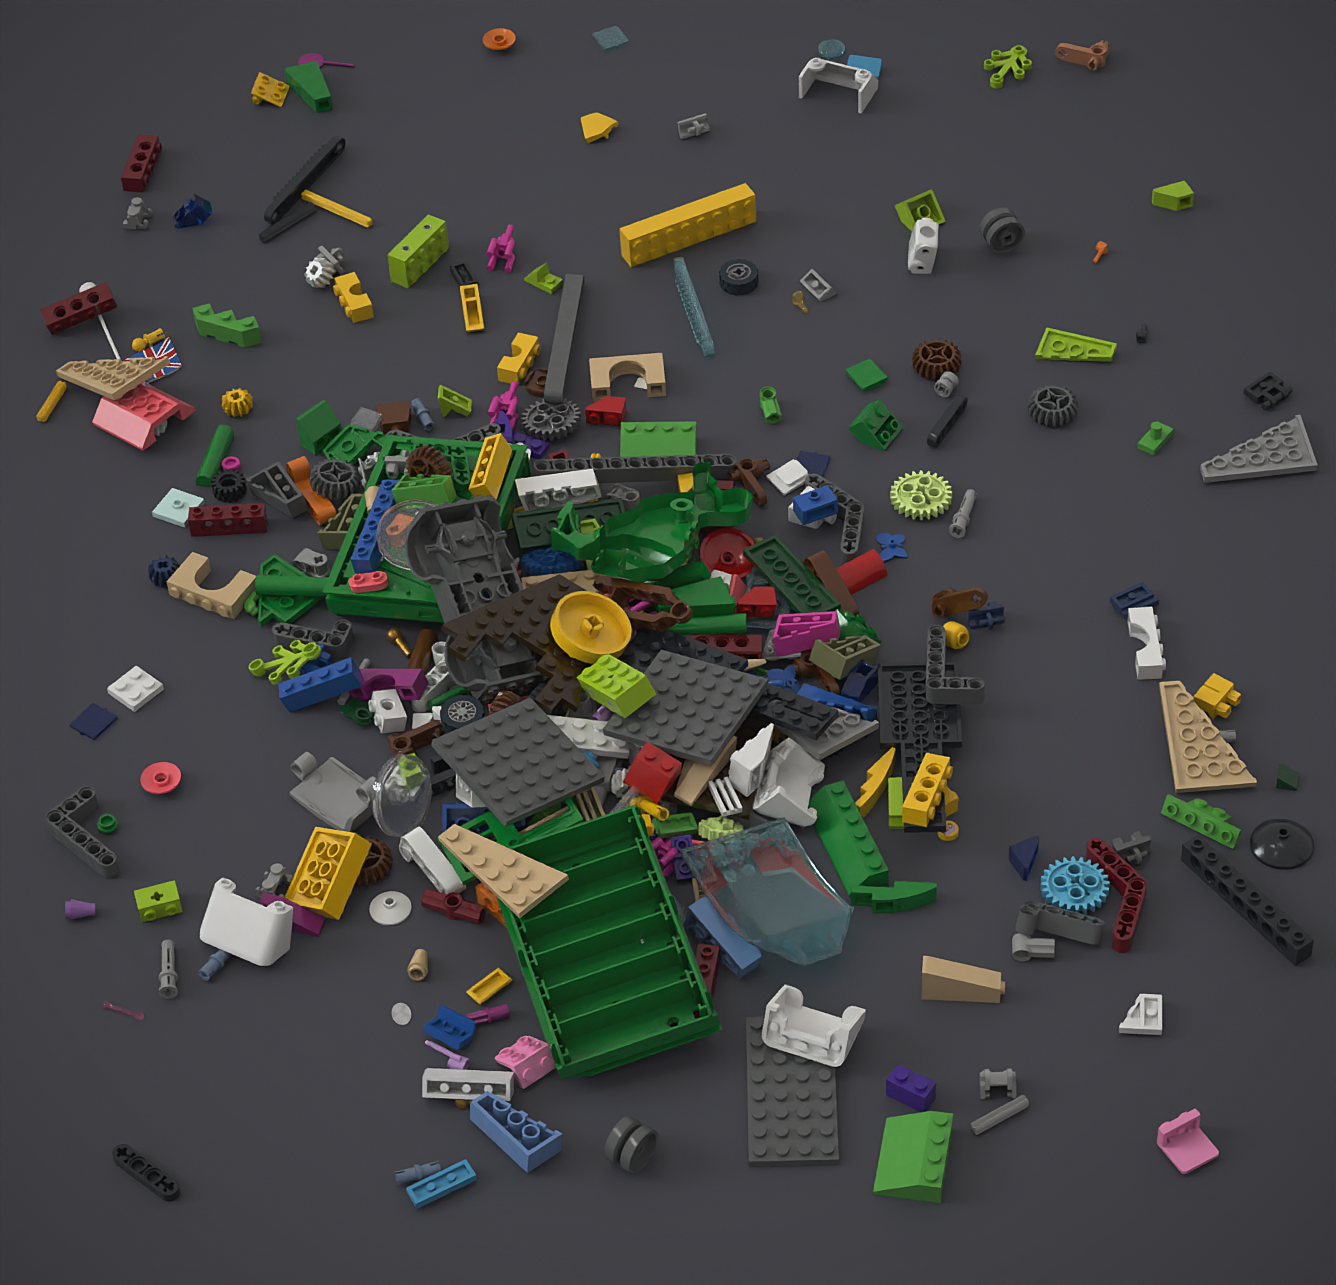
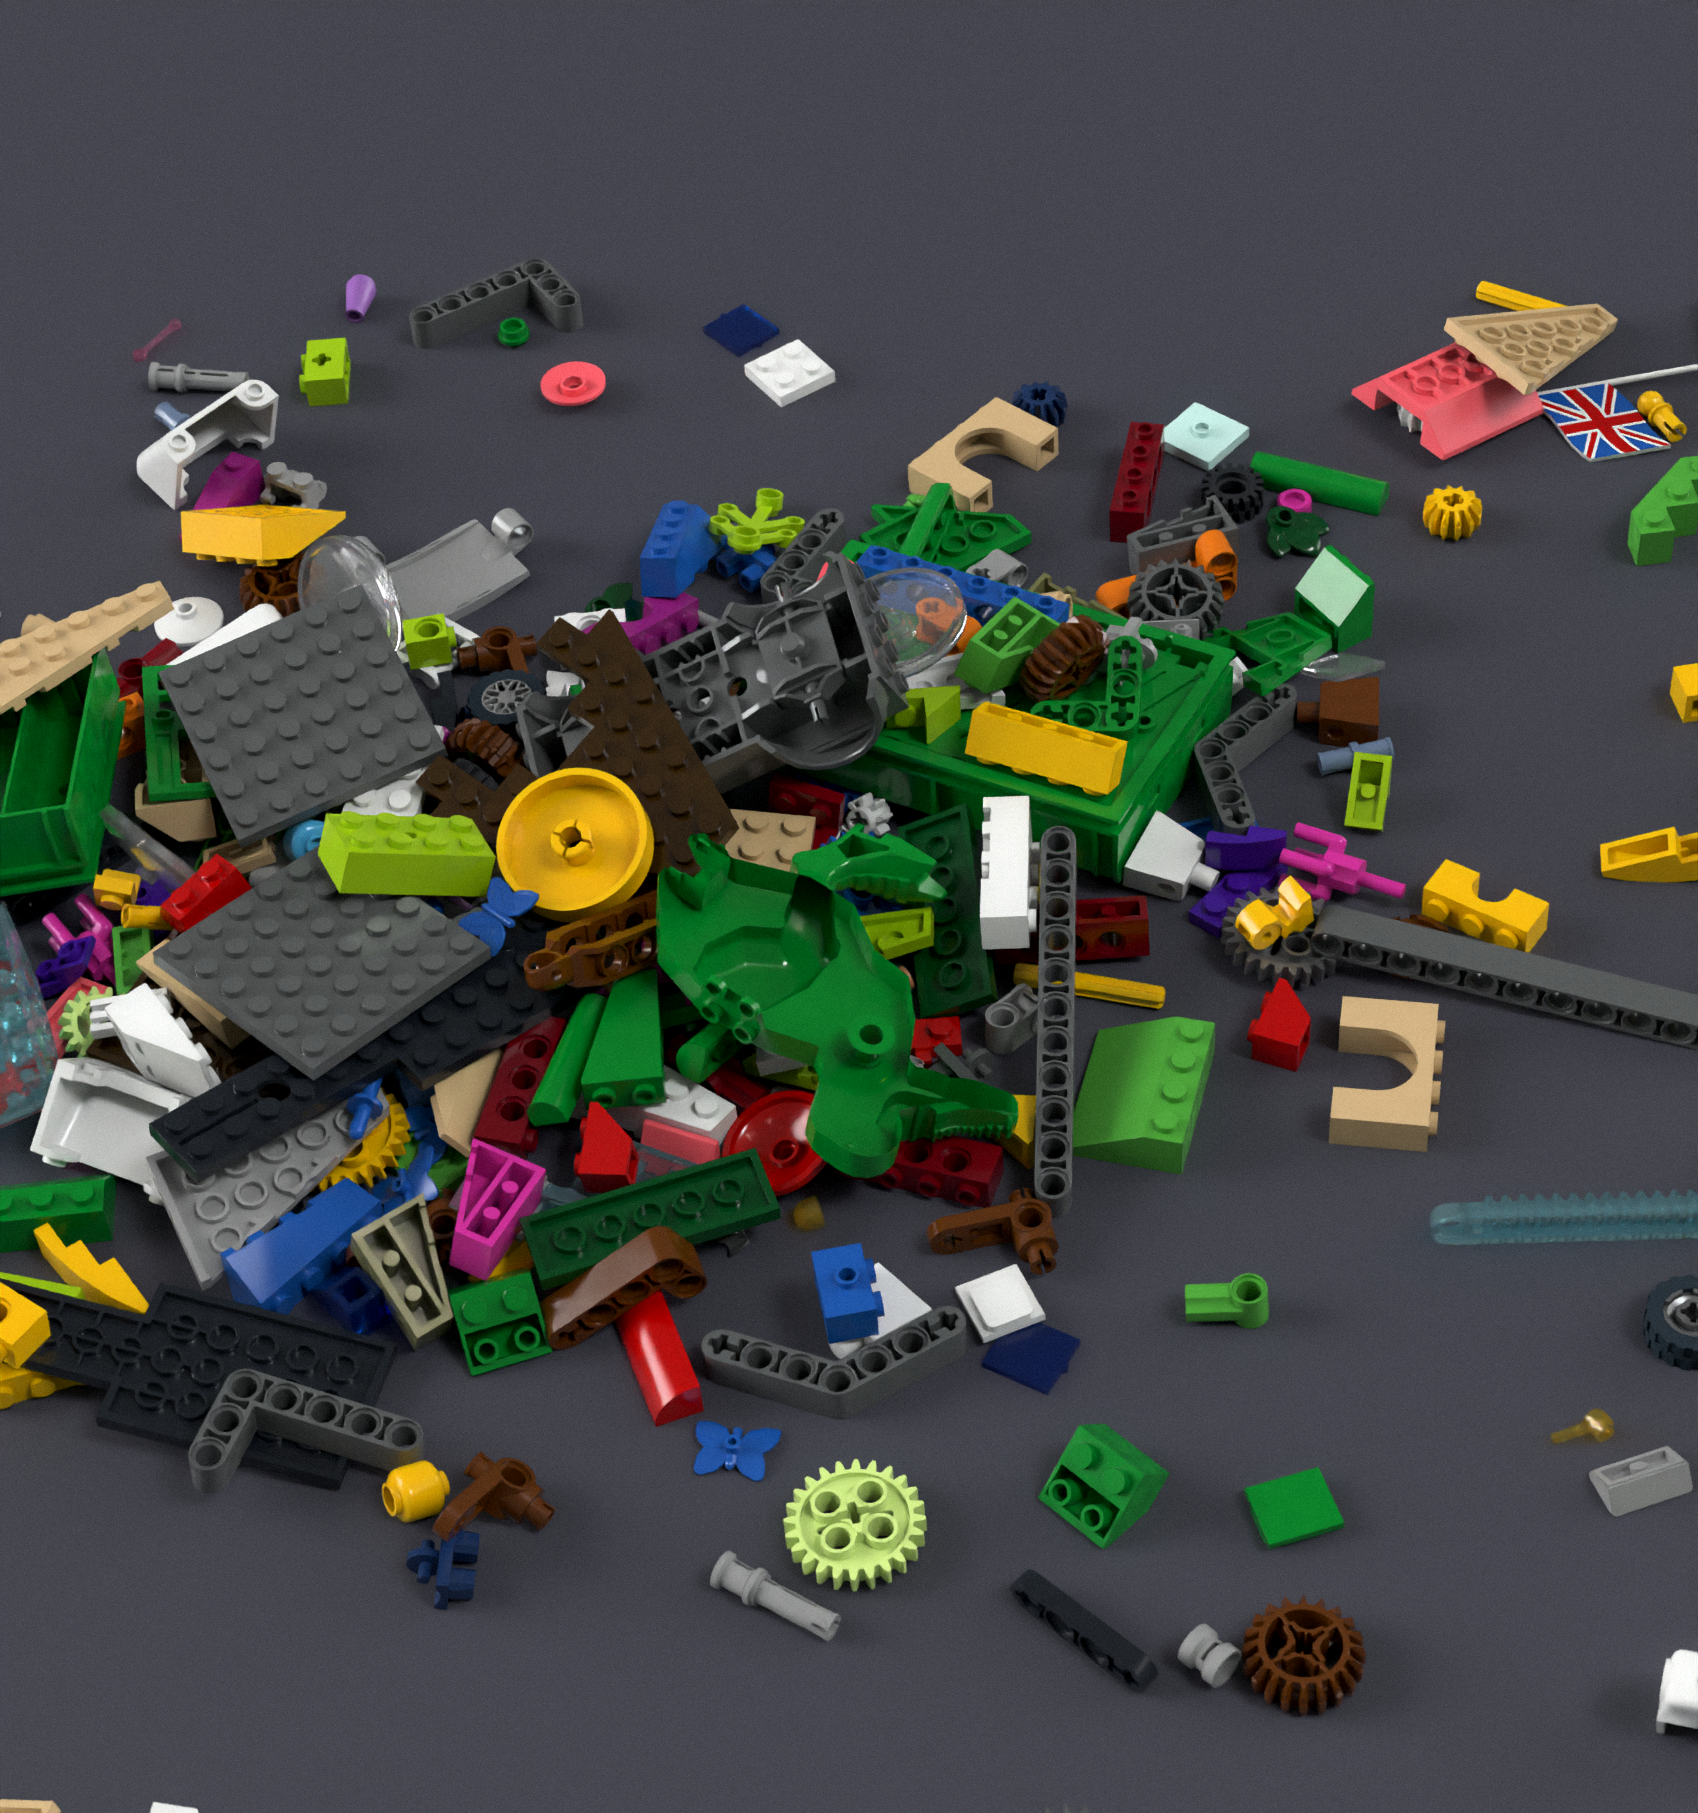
camera: 105 degrees right, 0 degrees up
(251, 461) = (1294, 531): none -> dark green plate
(558, 411) = (1264, 923): none -> yellow leg
(637, 654) = (494, 916): none -> blue piece

